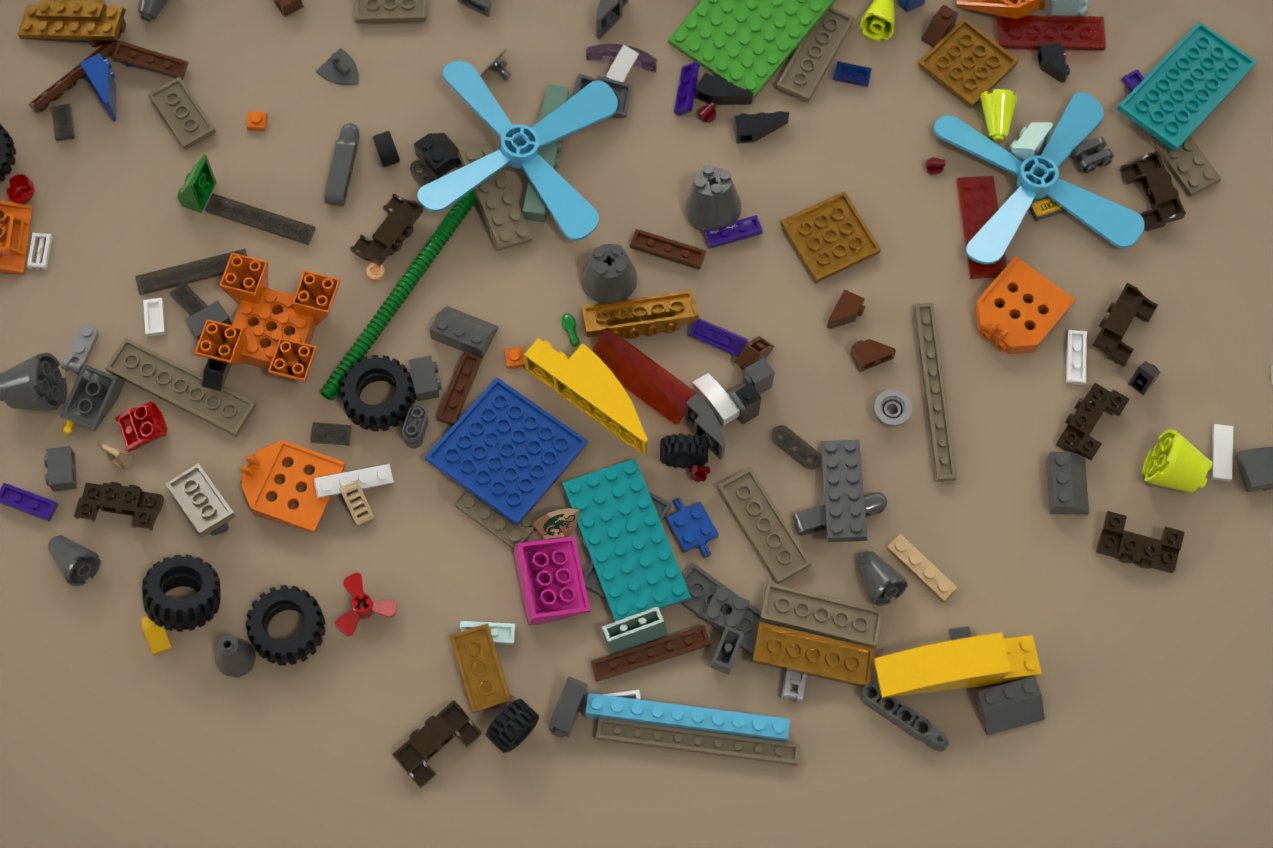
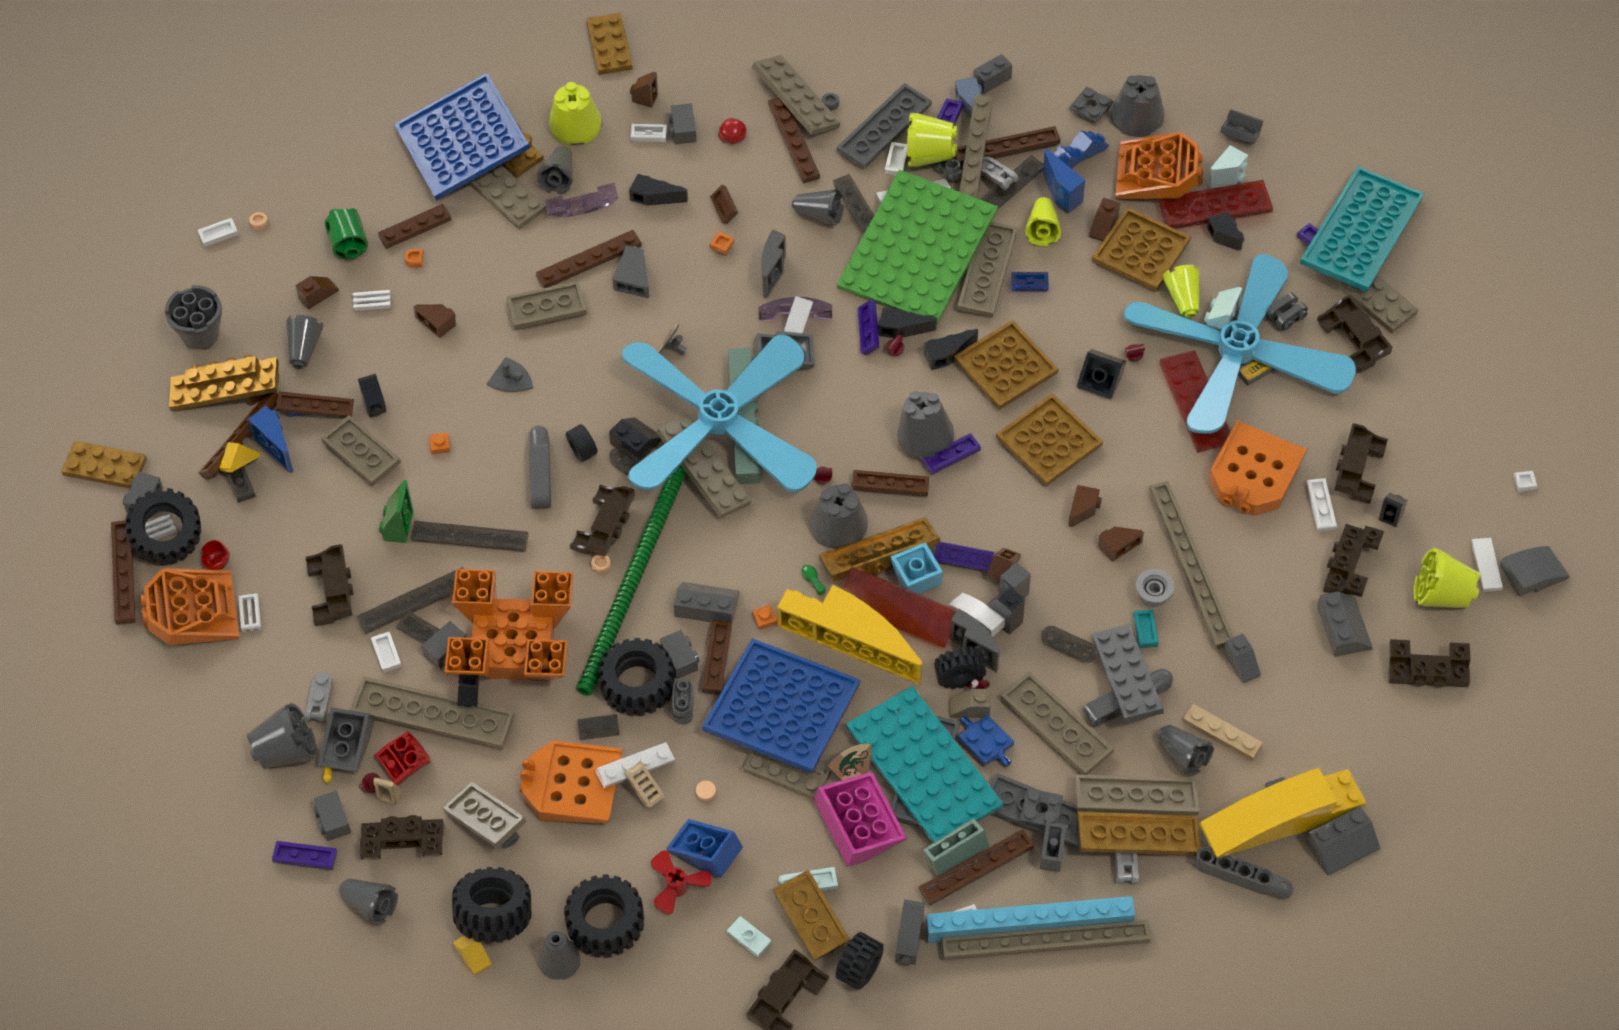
camera: 10 degrees left, 10 degrees down
(65, 96) = (237, 456): none -> yellow slope
(106, 439) = (367, 783): none -> dark red plate
(123, 240) = (336, 584): none -> dark brown bracket
(204, 61) = (372, 395): none -> black slope
(399, 576) = (706, 847): none -> blue slope
(415, 519) = (705, 791): none -> light nougat tile
(417, 674) = (749, 936): none -> light aqua plate
(606, 227) = (823, 475): none -> dark red plate
(669, 342) = (917, 569): none -> medium azure slope
(687, 487) = (972, 703): none -> dark tan slope
(808, 152) = (1006, 364): none -> pearl gold plate
(874, 447) = (1145, 629): none -> teal tile
(897, 180) = (1101, 373): none -> black slope
(959, 497) = (1242, 658): none -> dark grey slope

